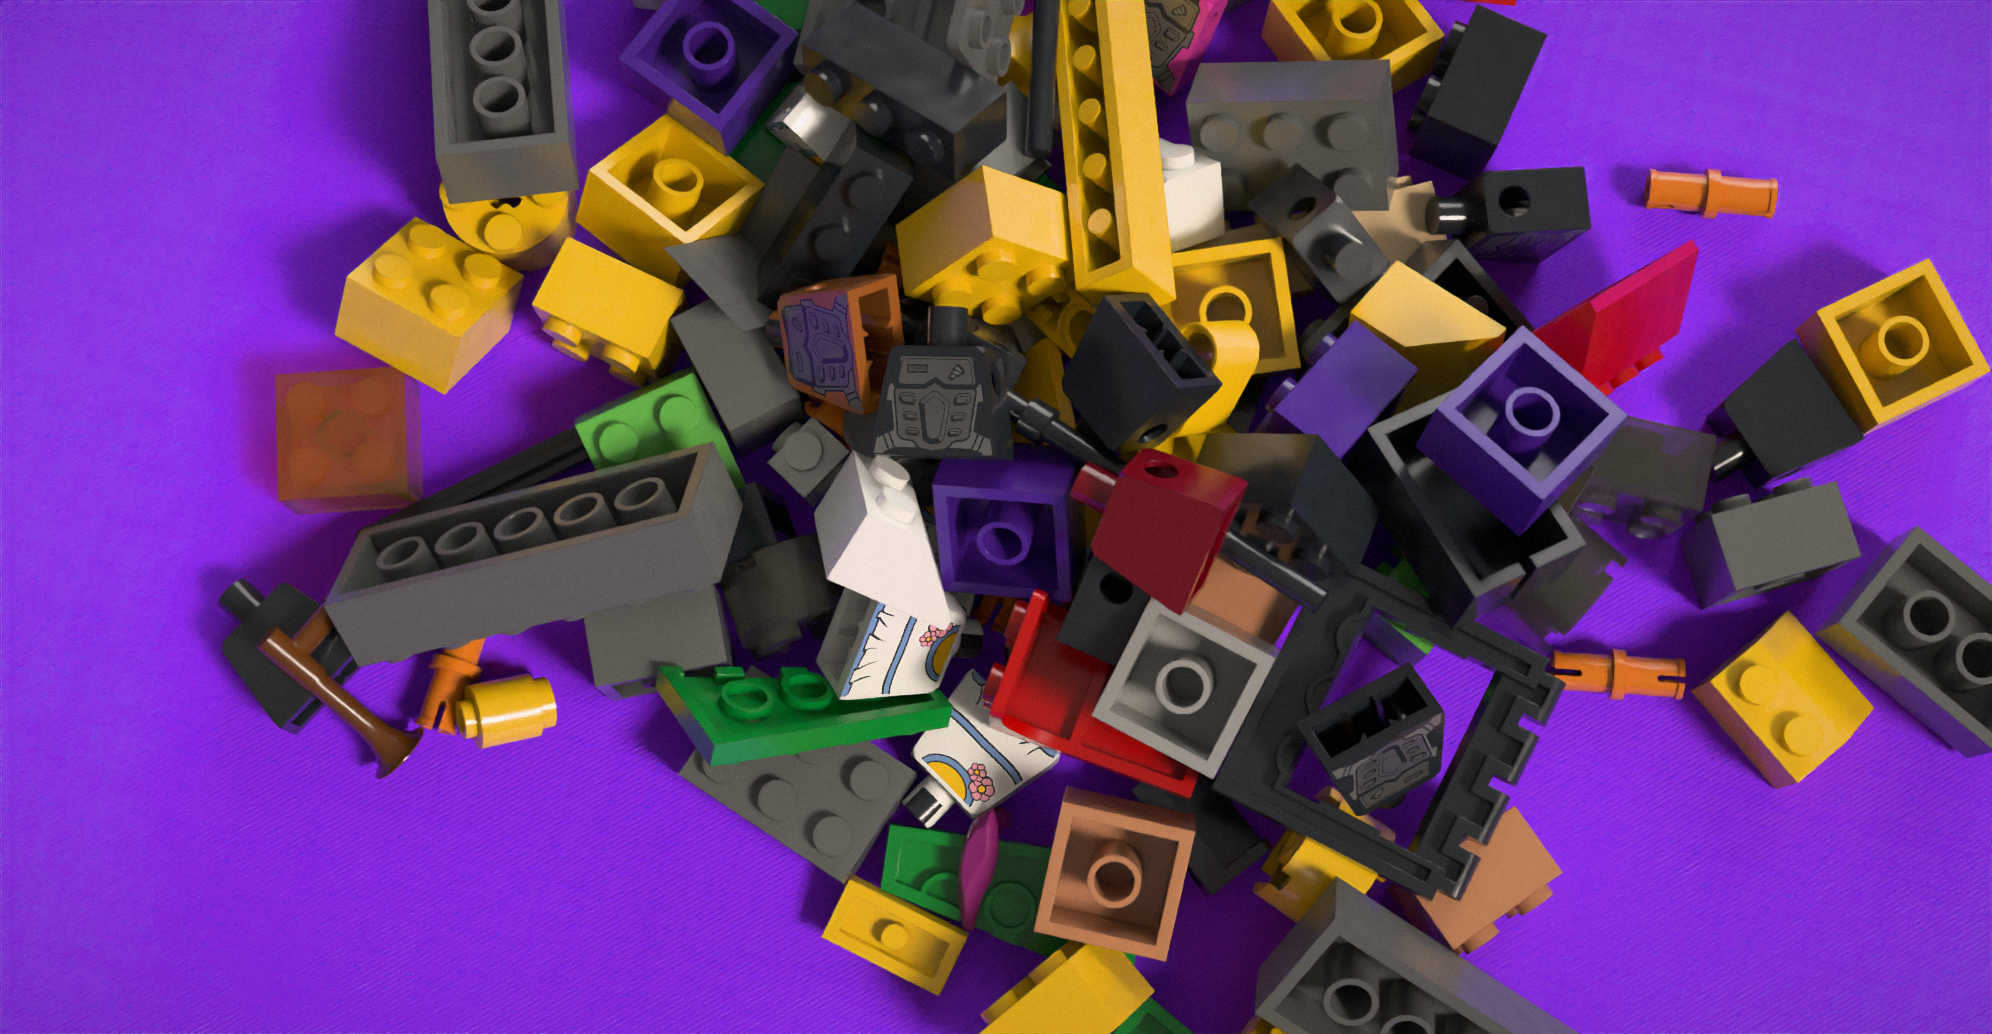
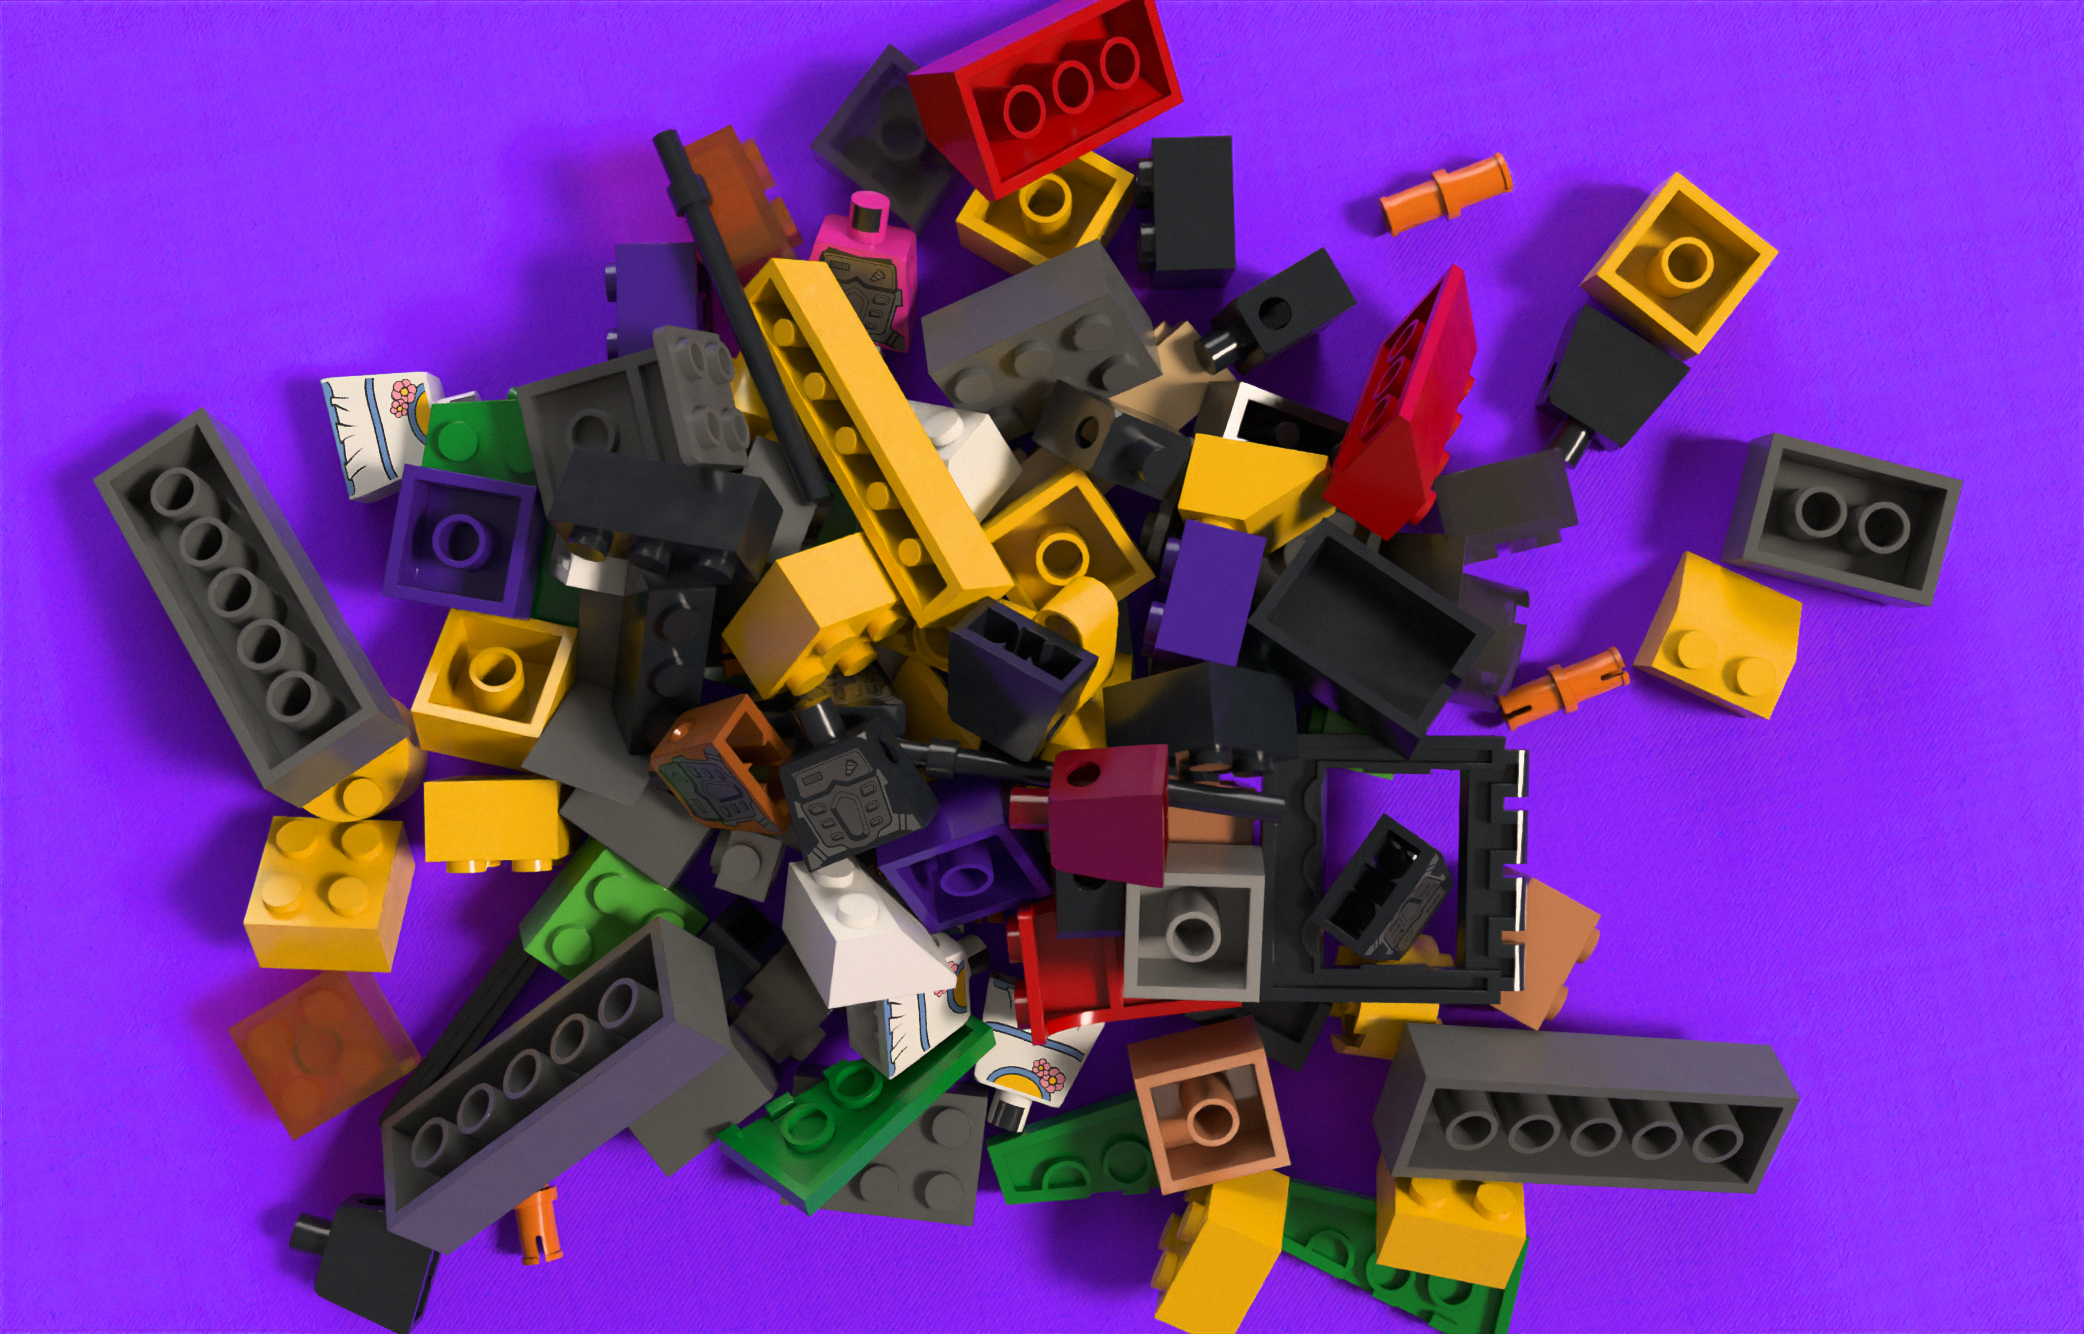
camera: 25 degrees left, 10 degrees up
(293, 657) = (385, 1276): reddish brown piece -> none
(506, 710) = (597, 1215): yellow brick -> none
(895, 935) = (1040, 1236): yellow plate -> none
(978, 861) = (1081, 1140): magenta bar -> none
(1520, 430) = (1391, 564): dark purple brick -> none
(1768, 544) = (1649, 511): dark grey brick -> none

